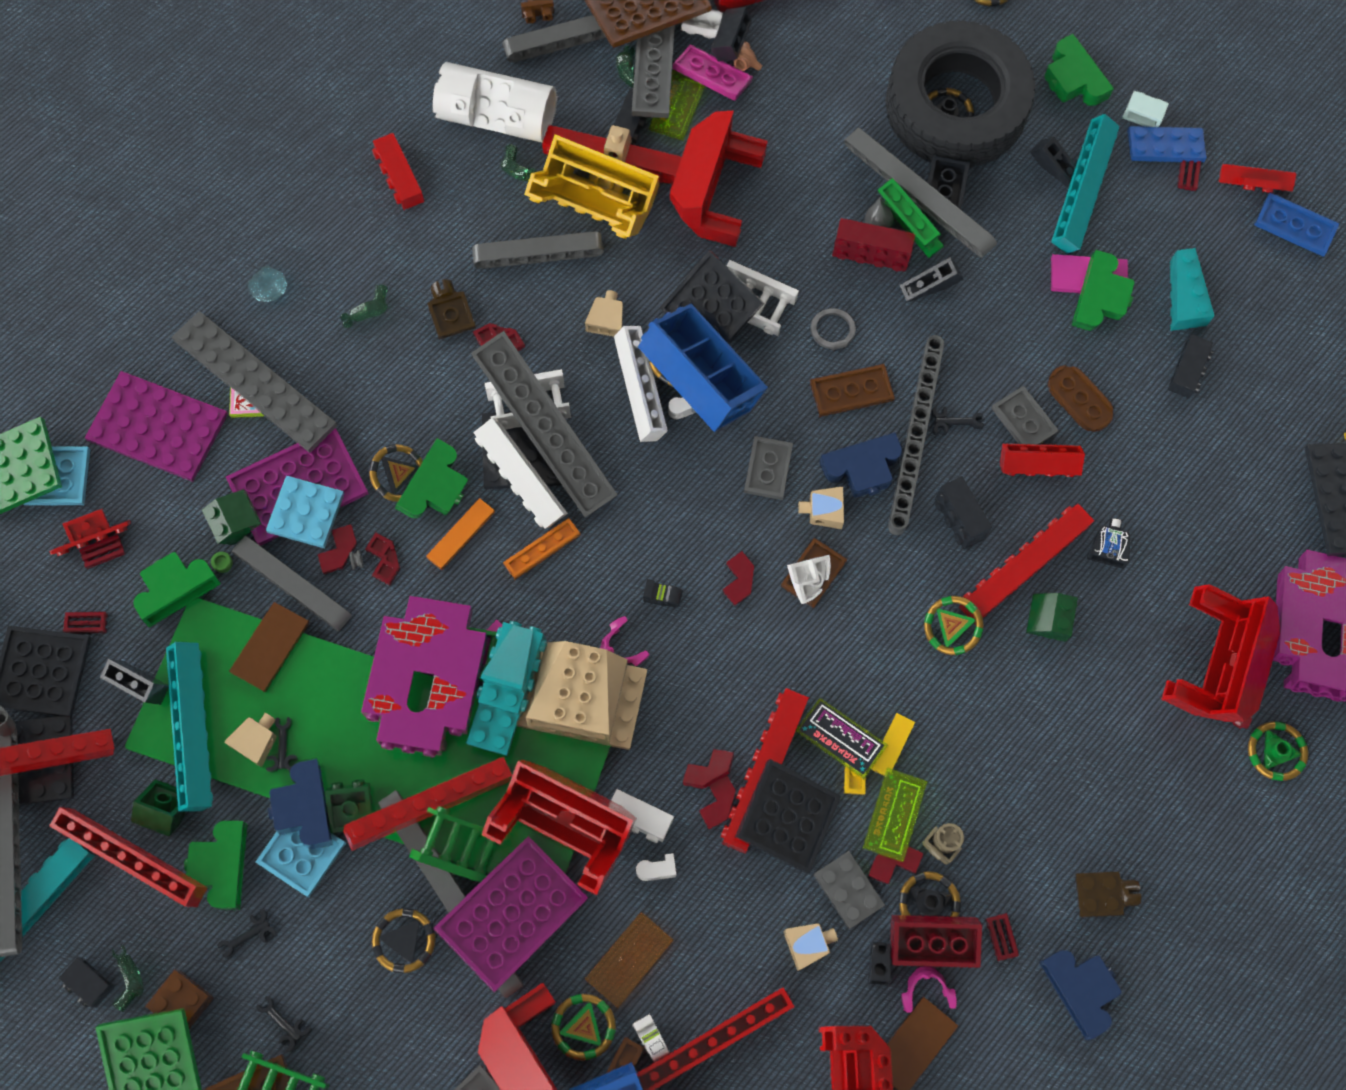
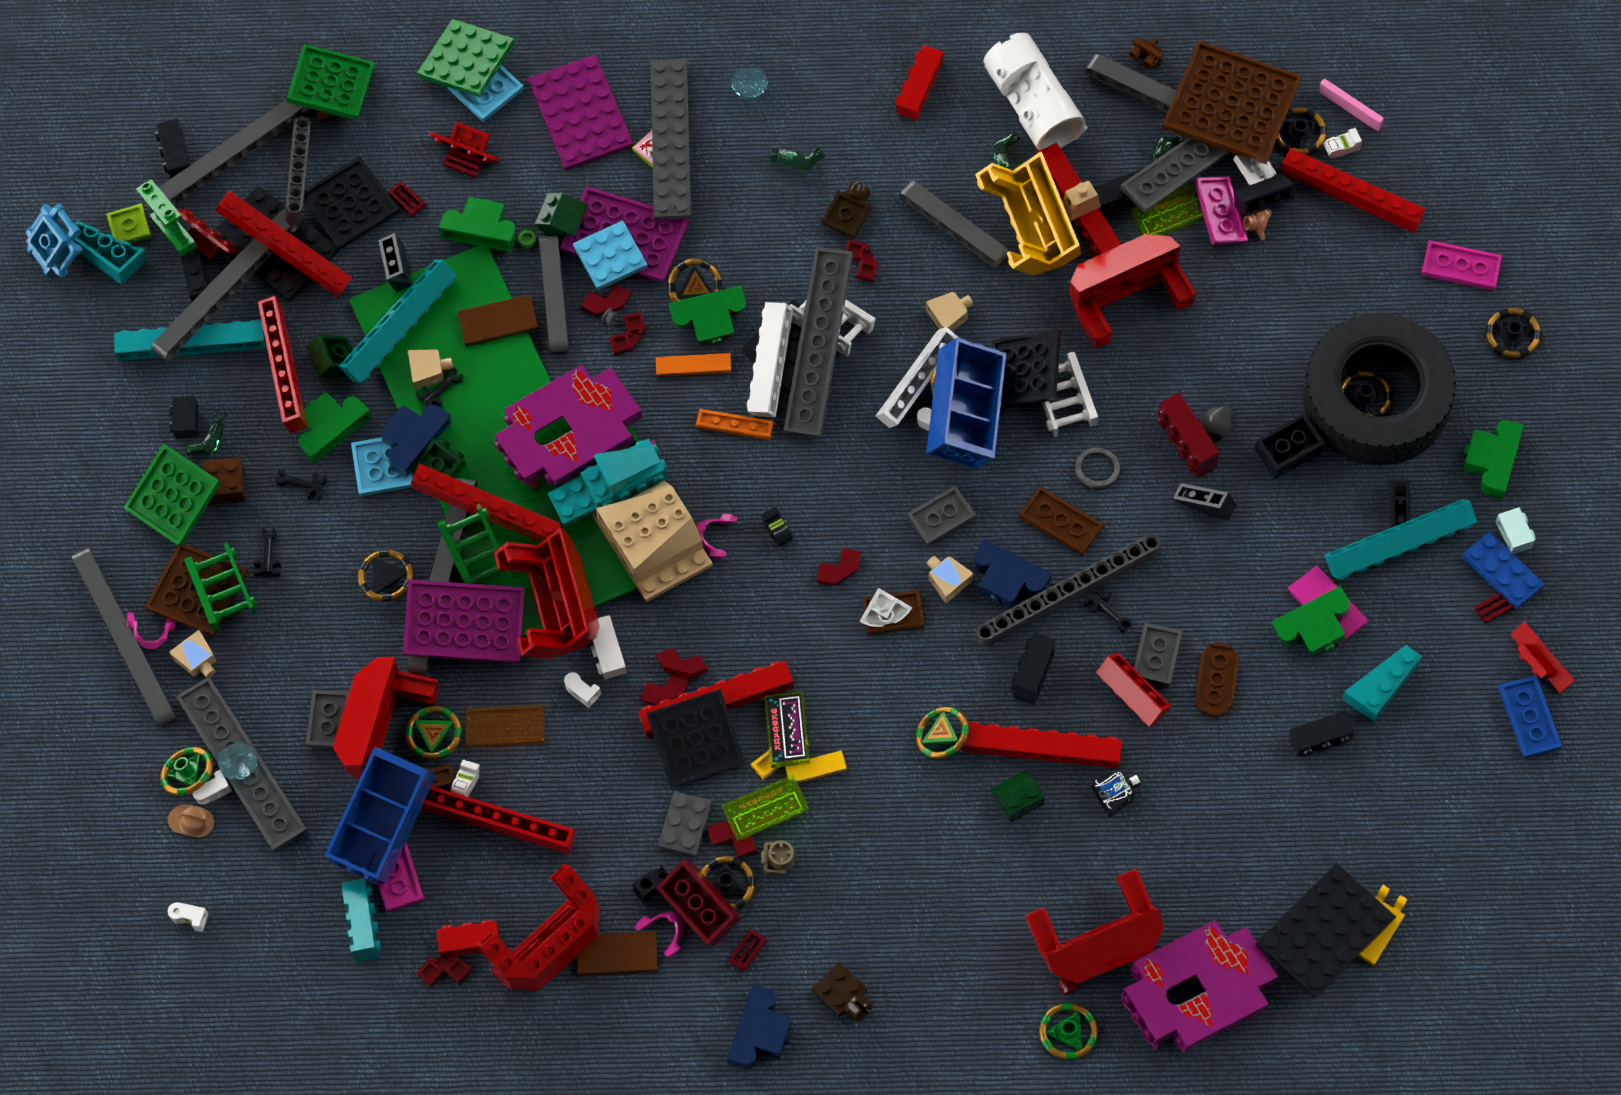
camera: 55 degrees right, 5 degrees down
(808, 943) = (621, 827): torso -> none
(911, 218) = (1234, 441): green fence -> none
(921, 193) = (1259, 427): dark grey beam -> none

